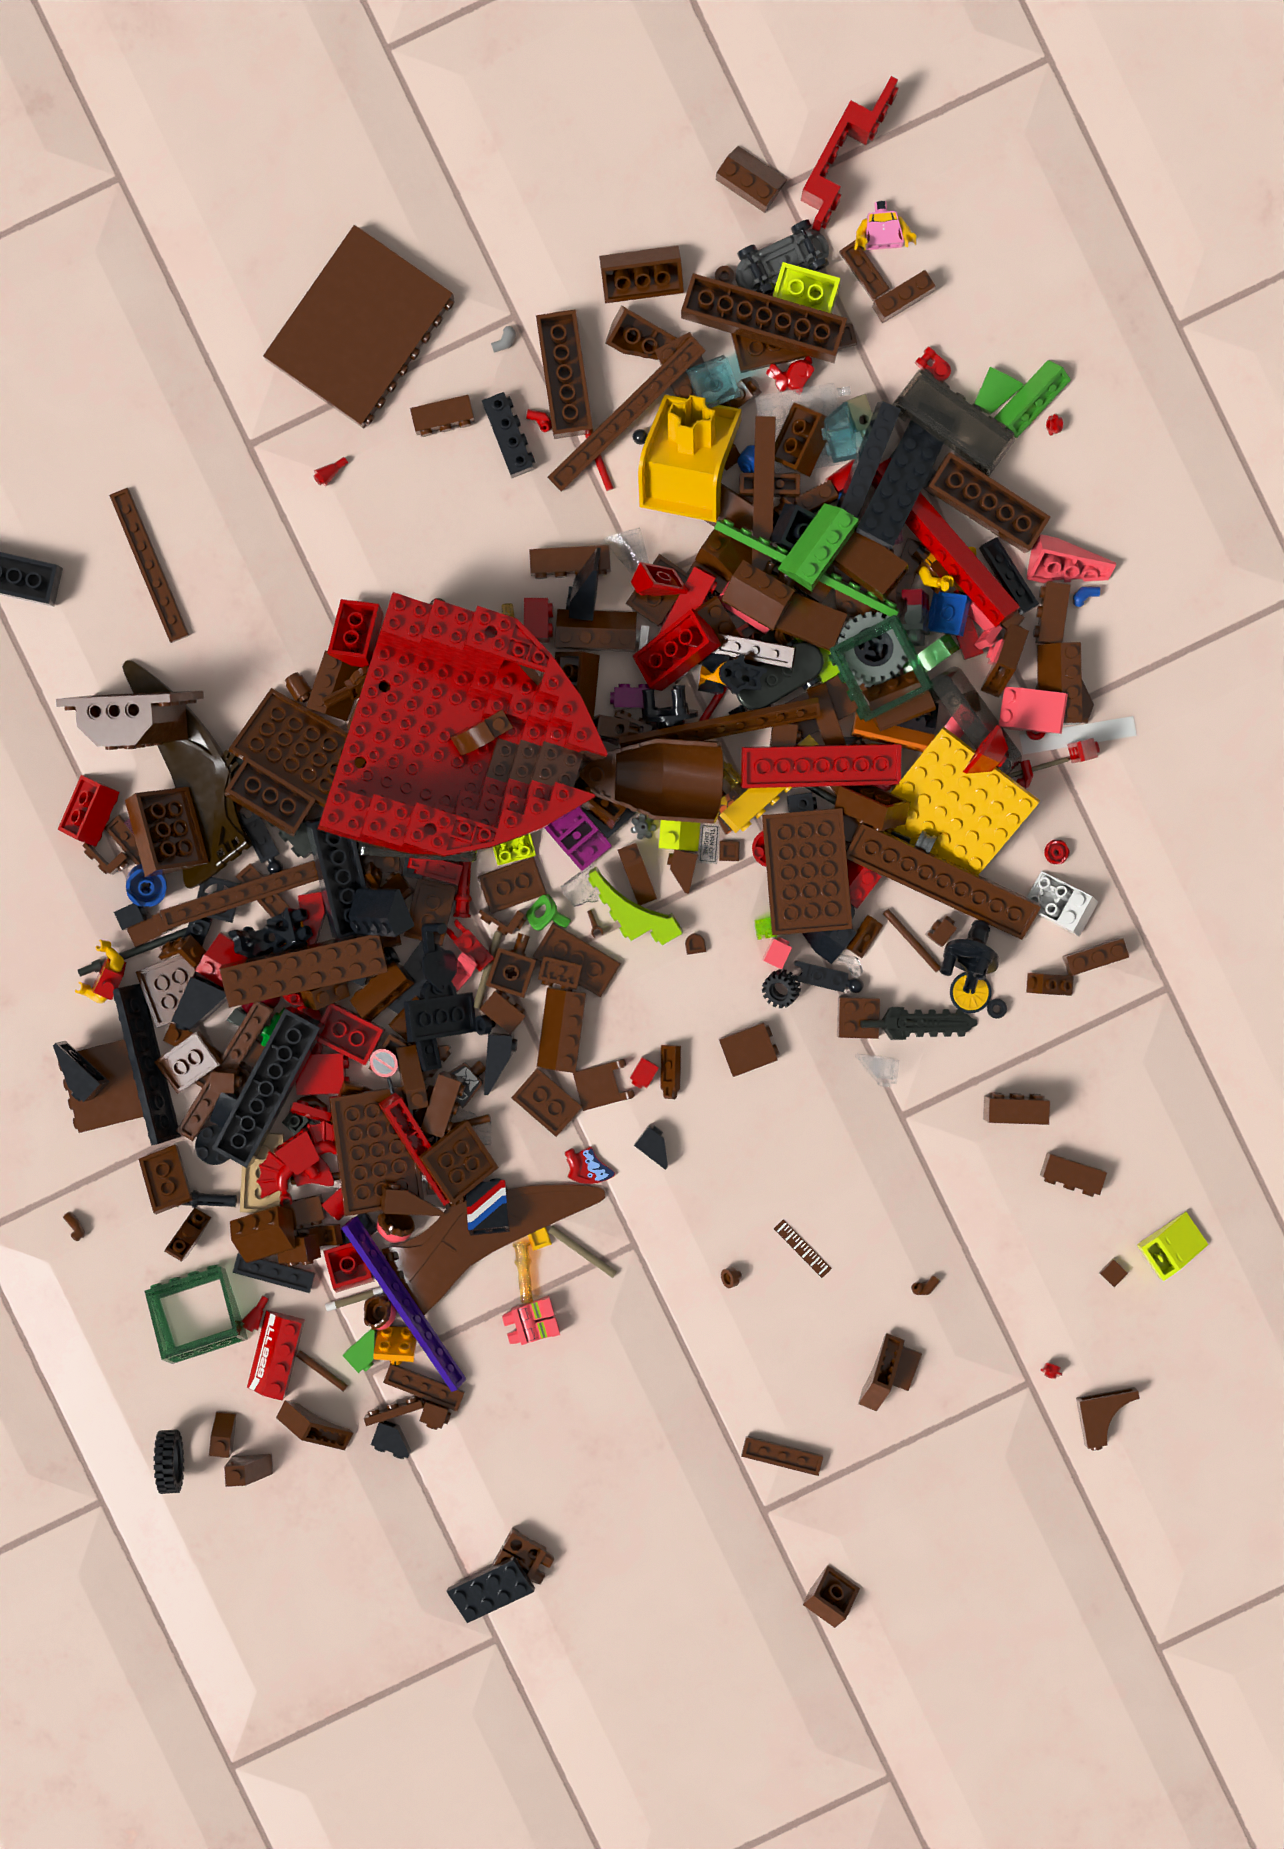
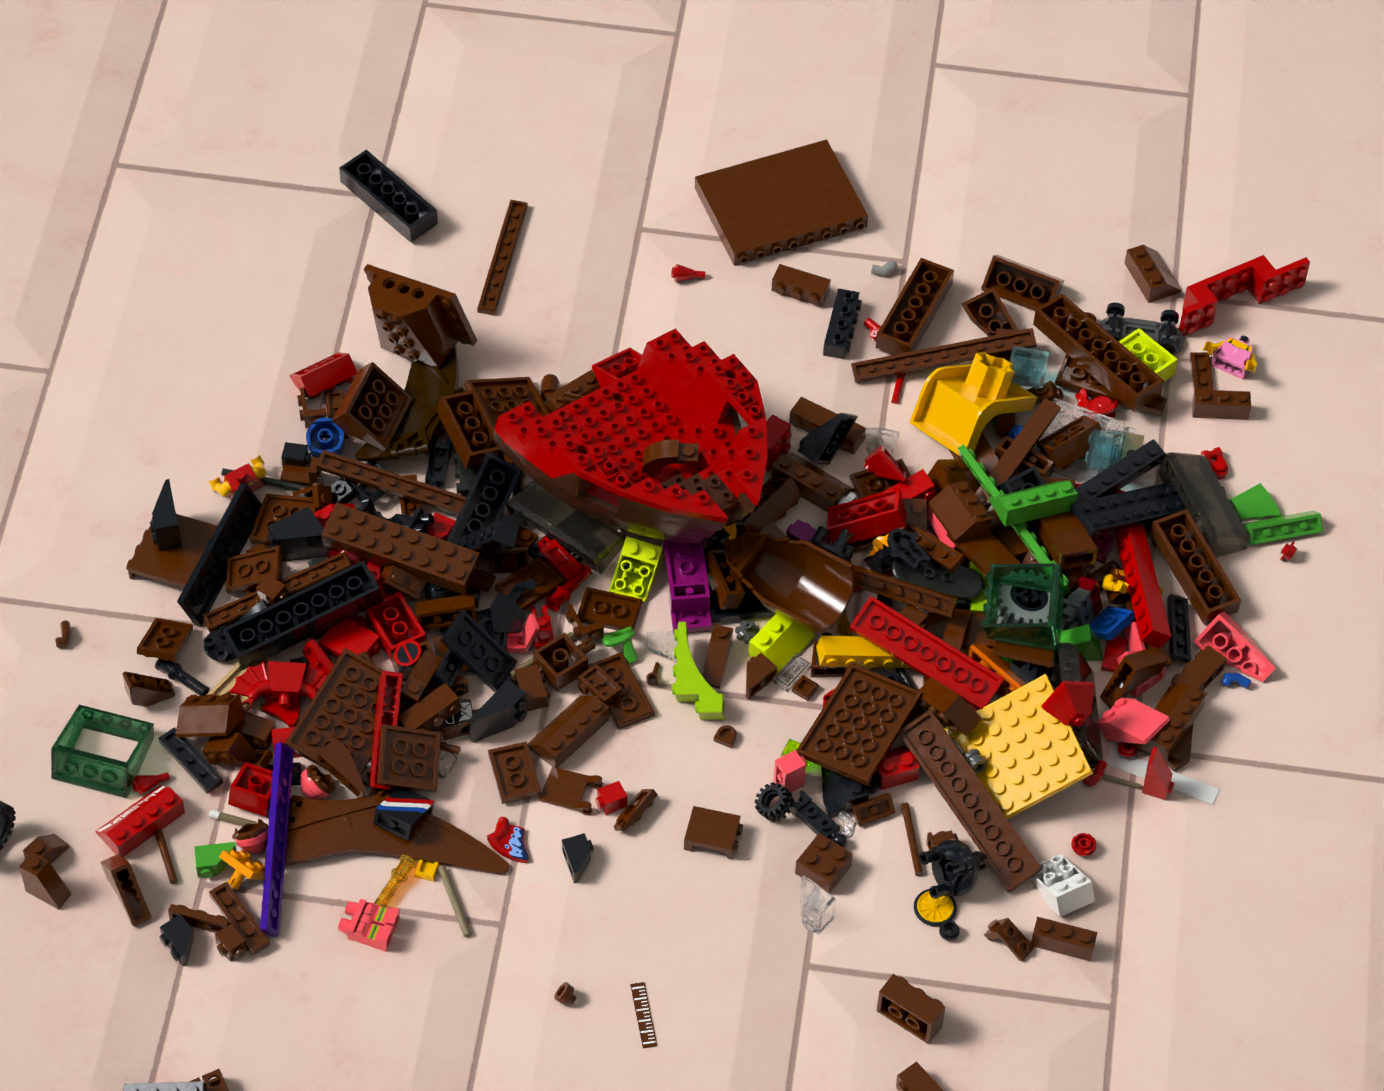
camera: 30 degrees right, 35 degrees down
(899, 1023) = (855, 881): pearl dark grey bar -> none

